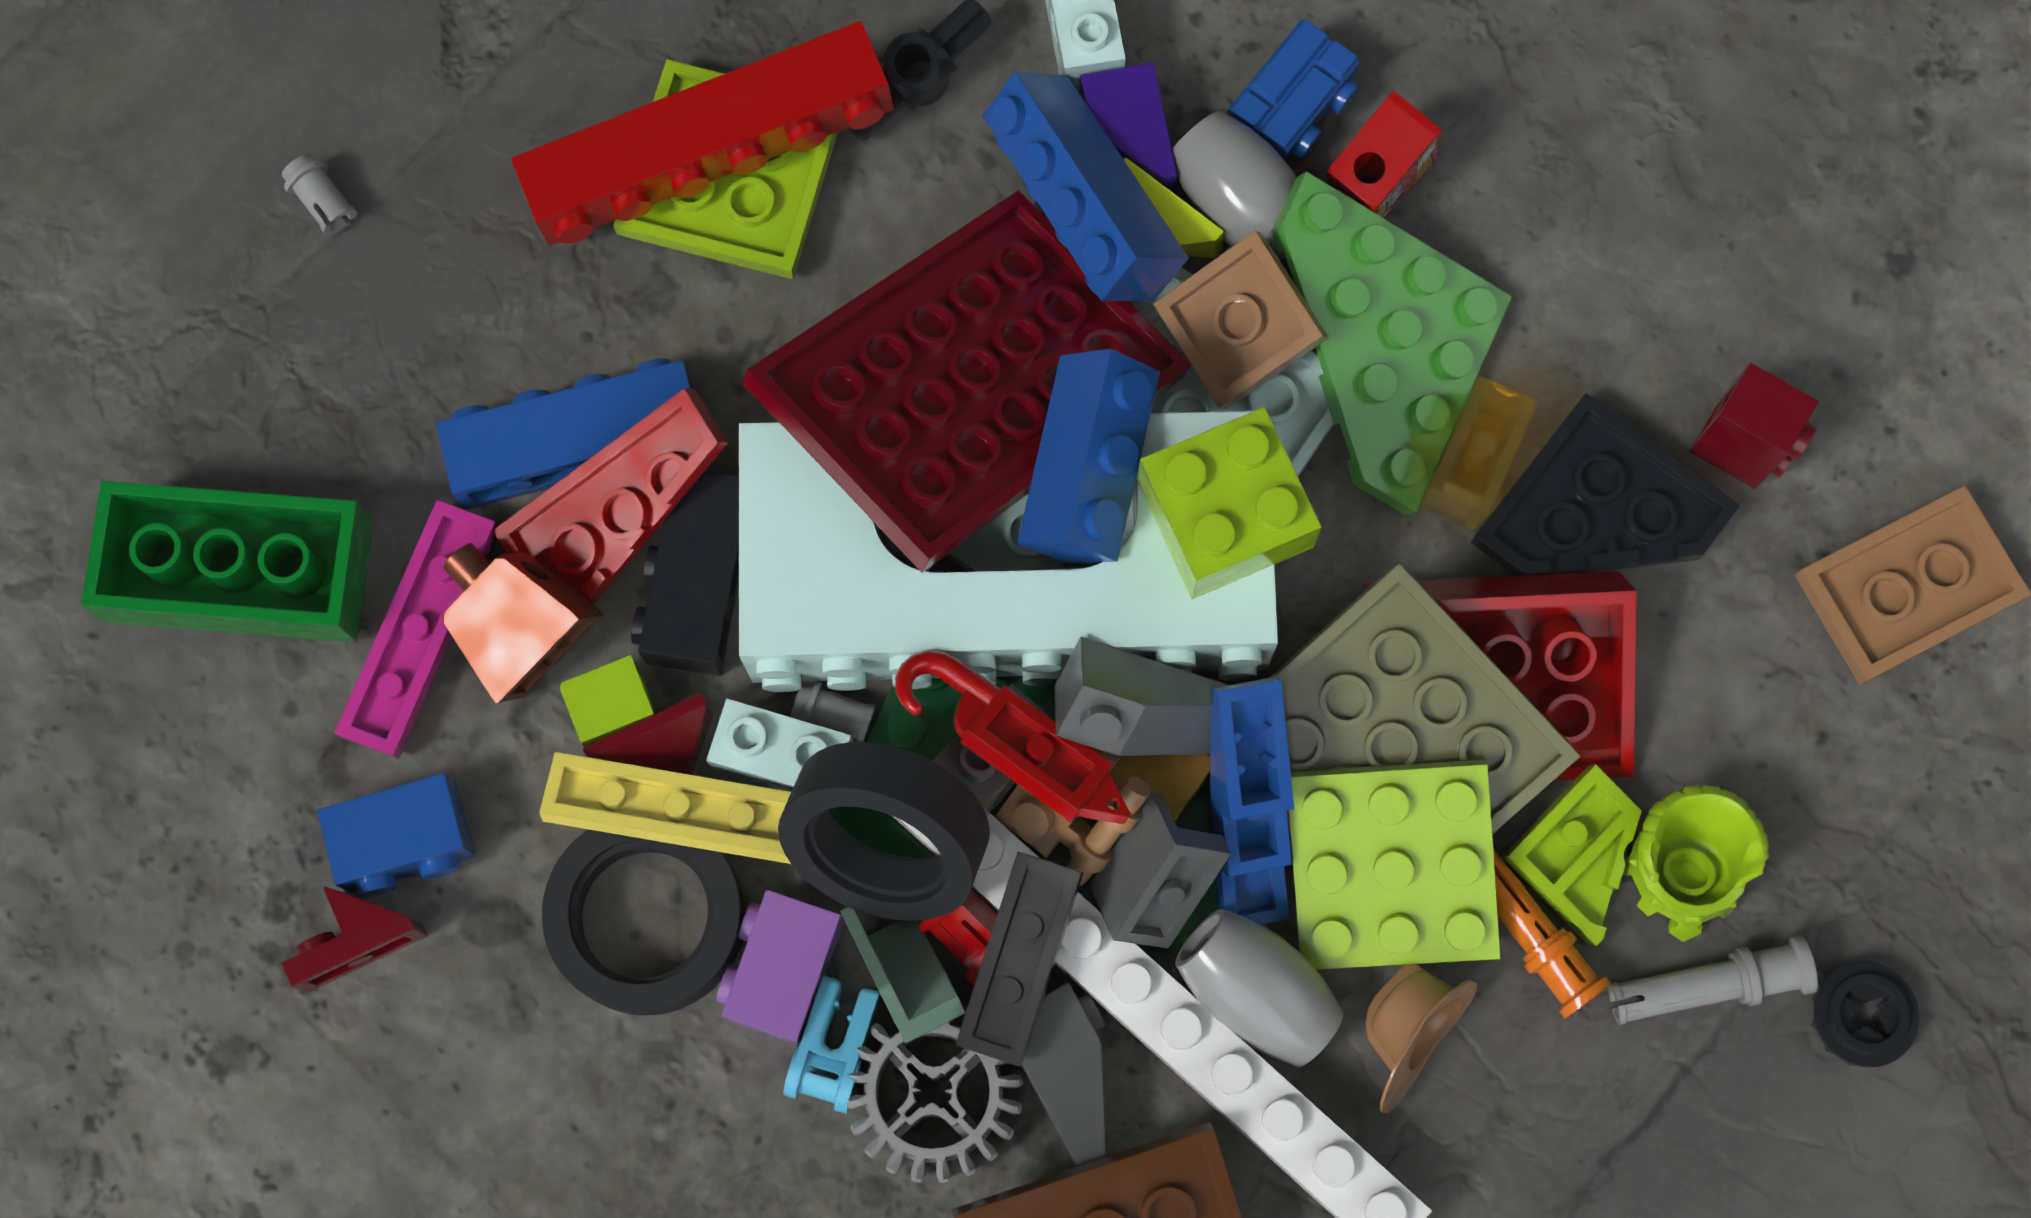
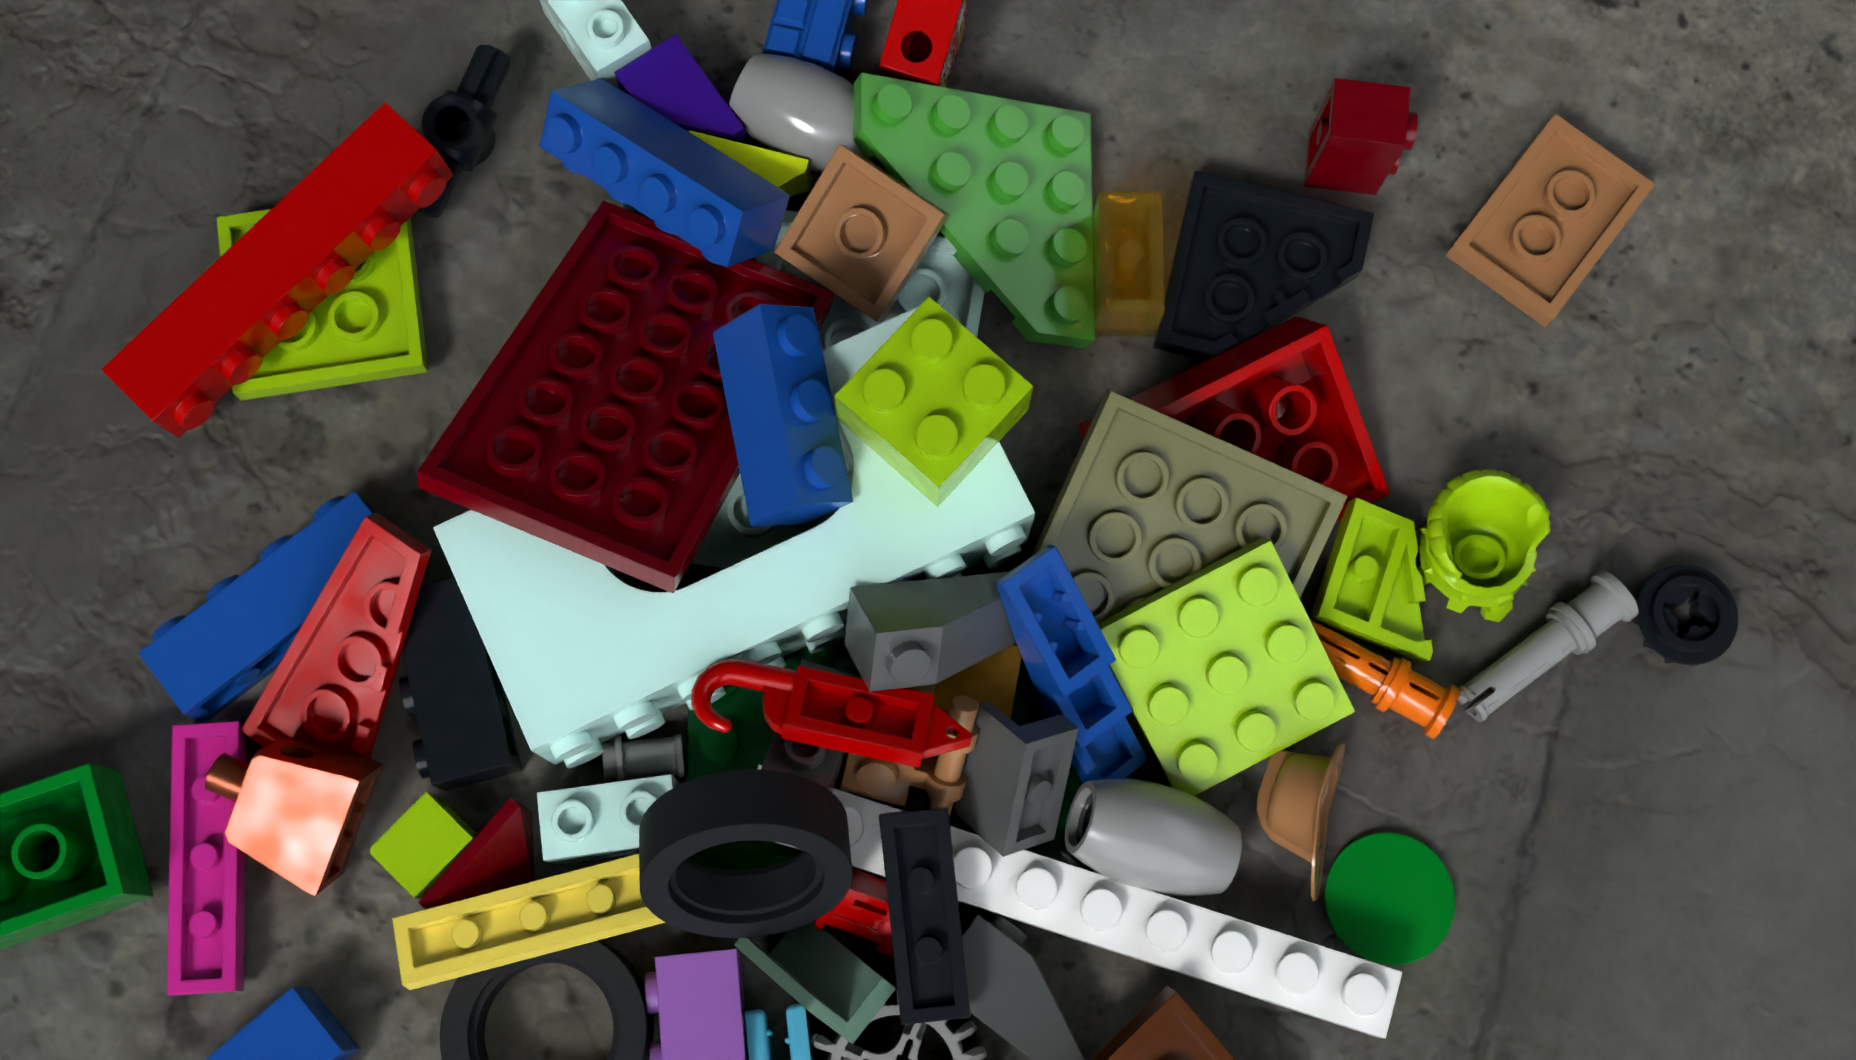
camera: 30 degrees left, 0 degrees up
(1457, 1146) = (1389, 899): none -> green piece

